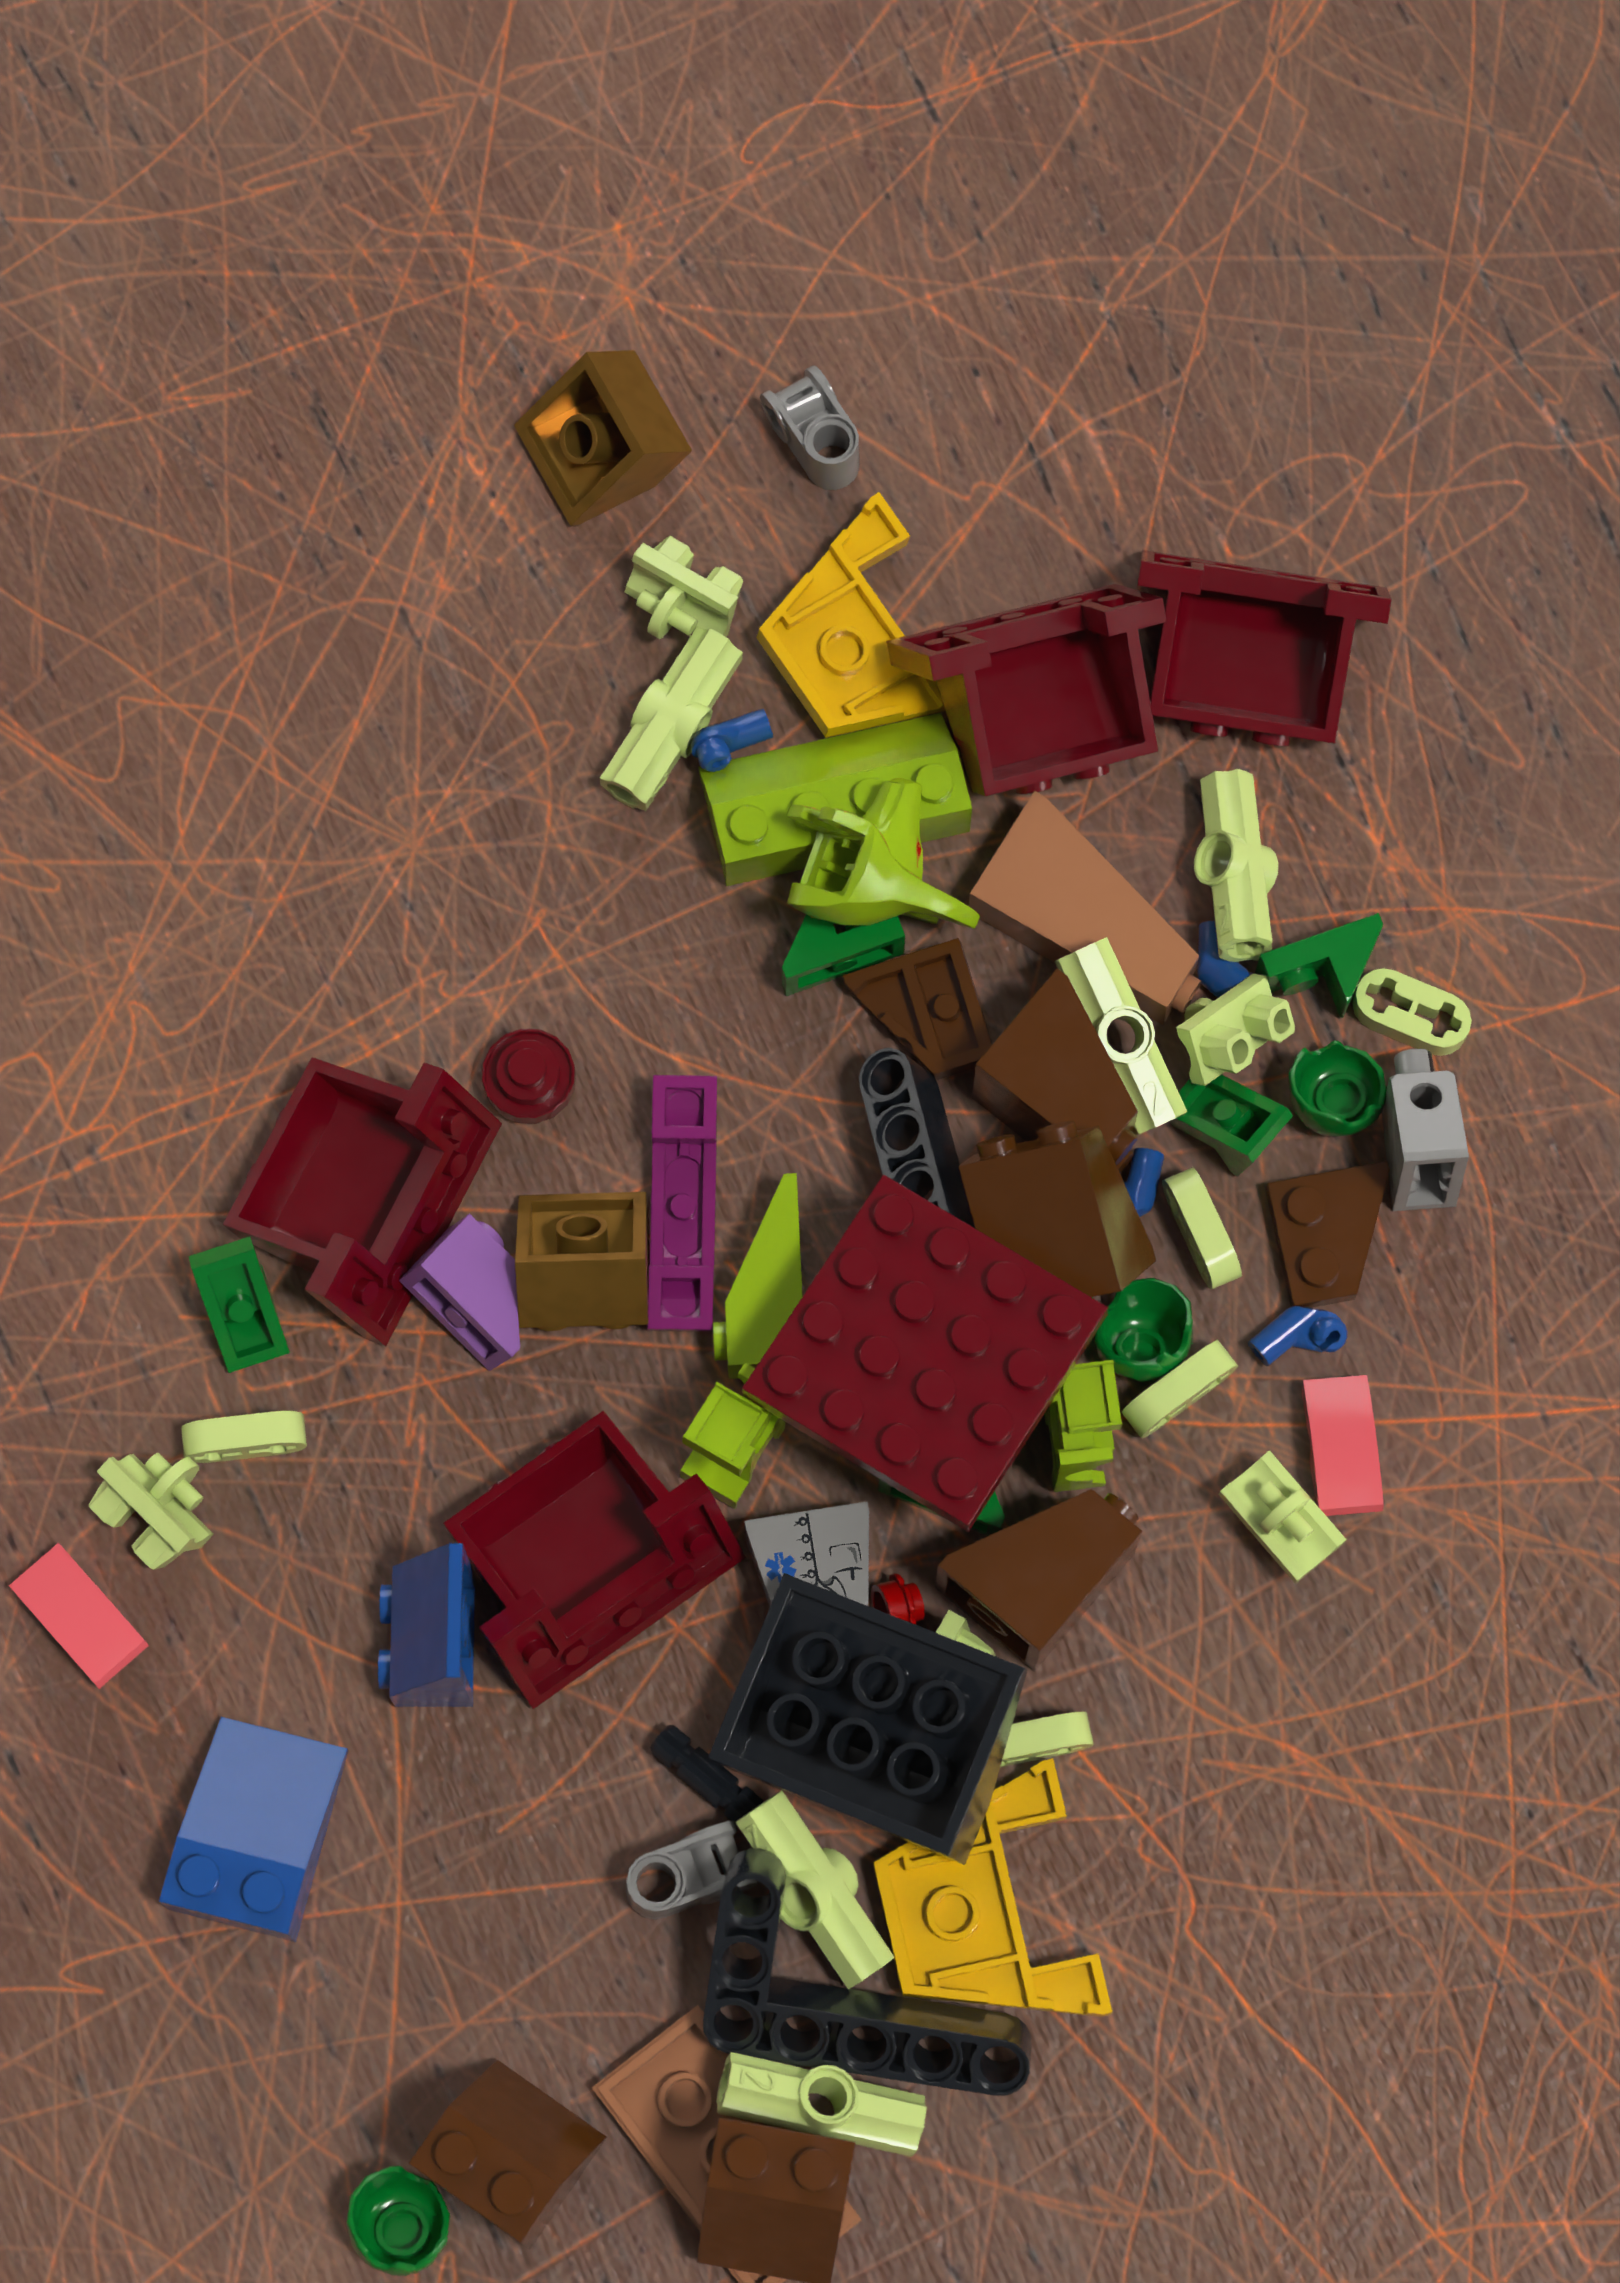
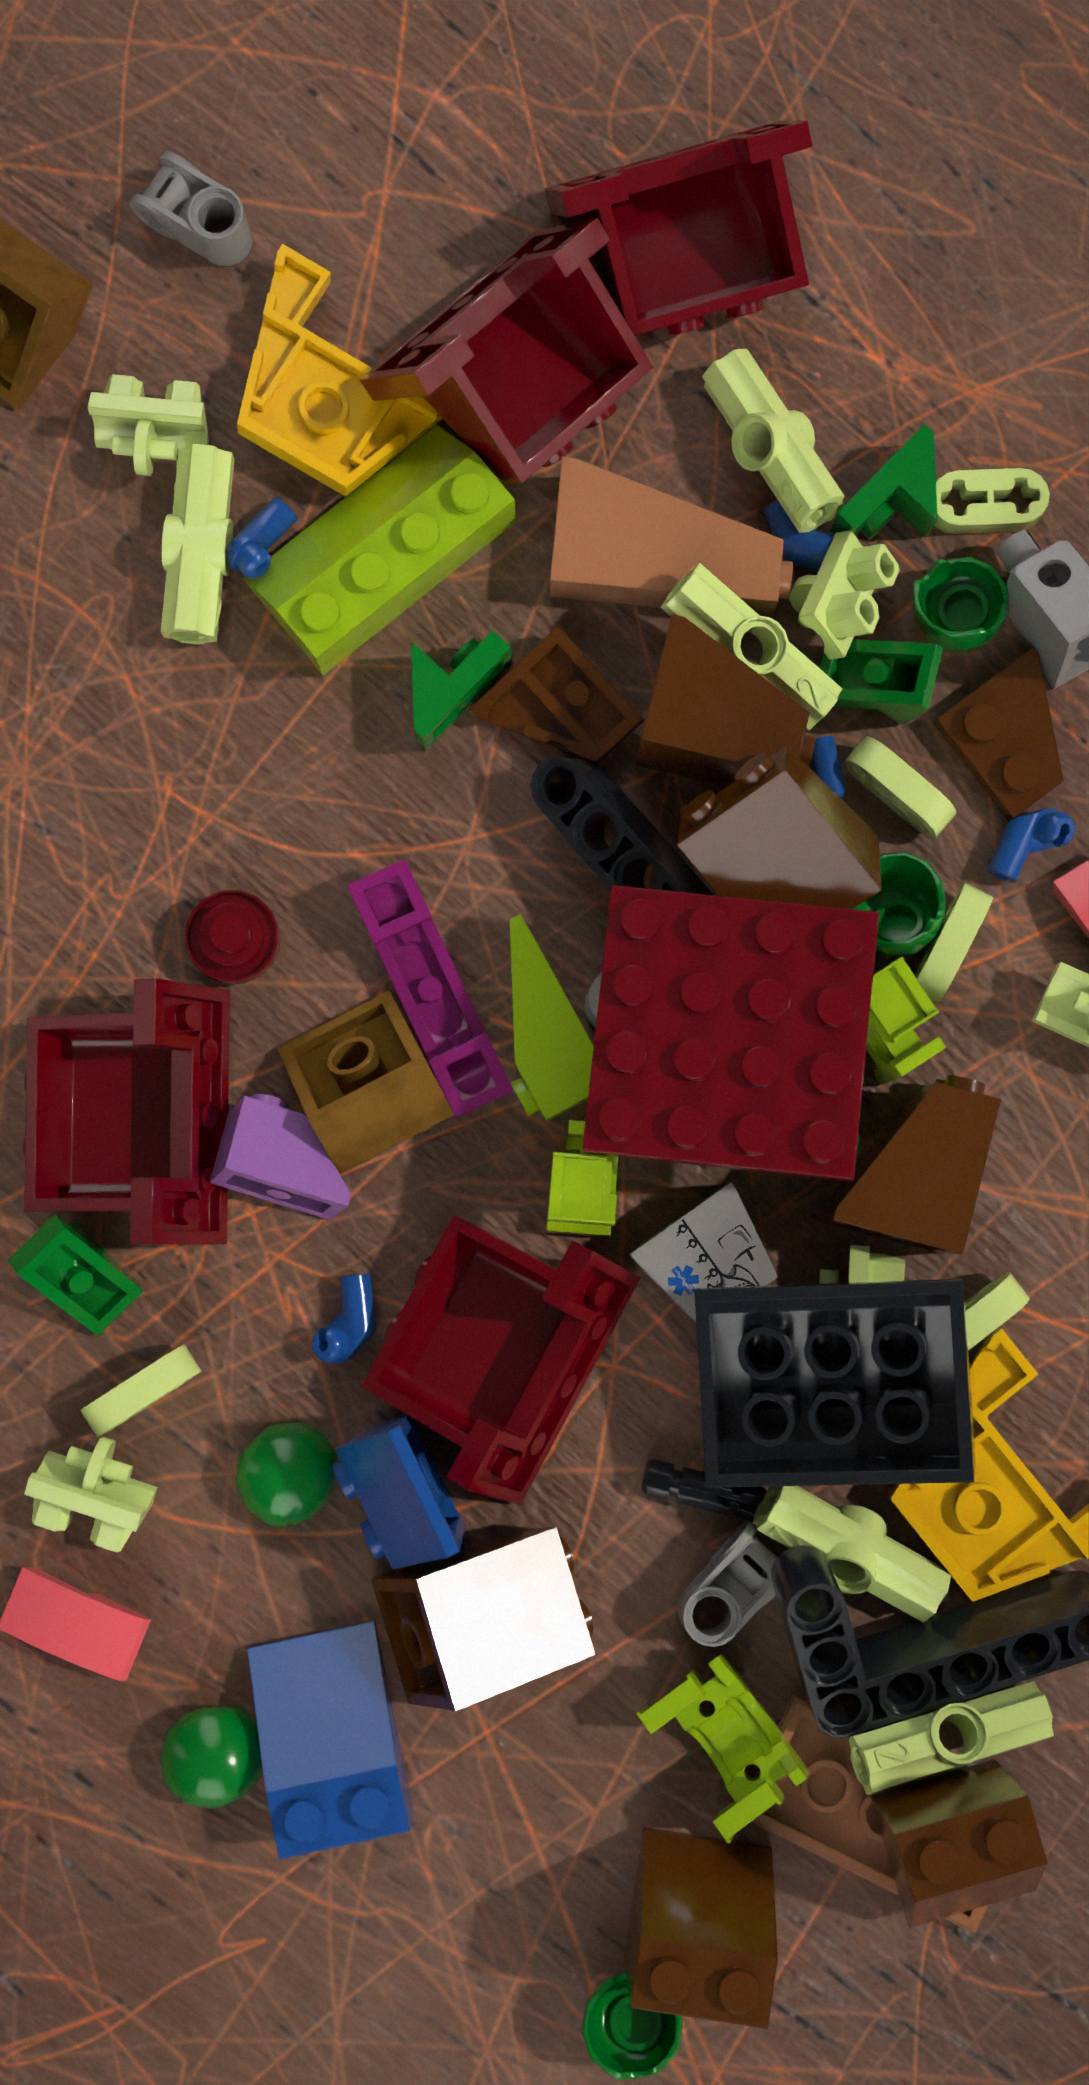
camera: 30 degrees left, 10 degrees up
(140, 1796) = (211, 1756): none -> green hair
(335, 1576) = (286, 1473): none -> green hair
(450, 1785) = (484, 1619): none -> slope
(461, 1473) = (352, 1326): none -> blue arm
(620, 2004) = (733, 1737): none -> lime piece
(871, 864) = (451, 597): lime piece -> none
(898, 1599) = (796, 1257): red plate -> none

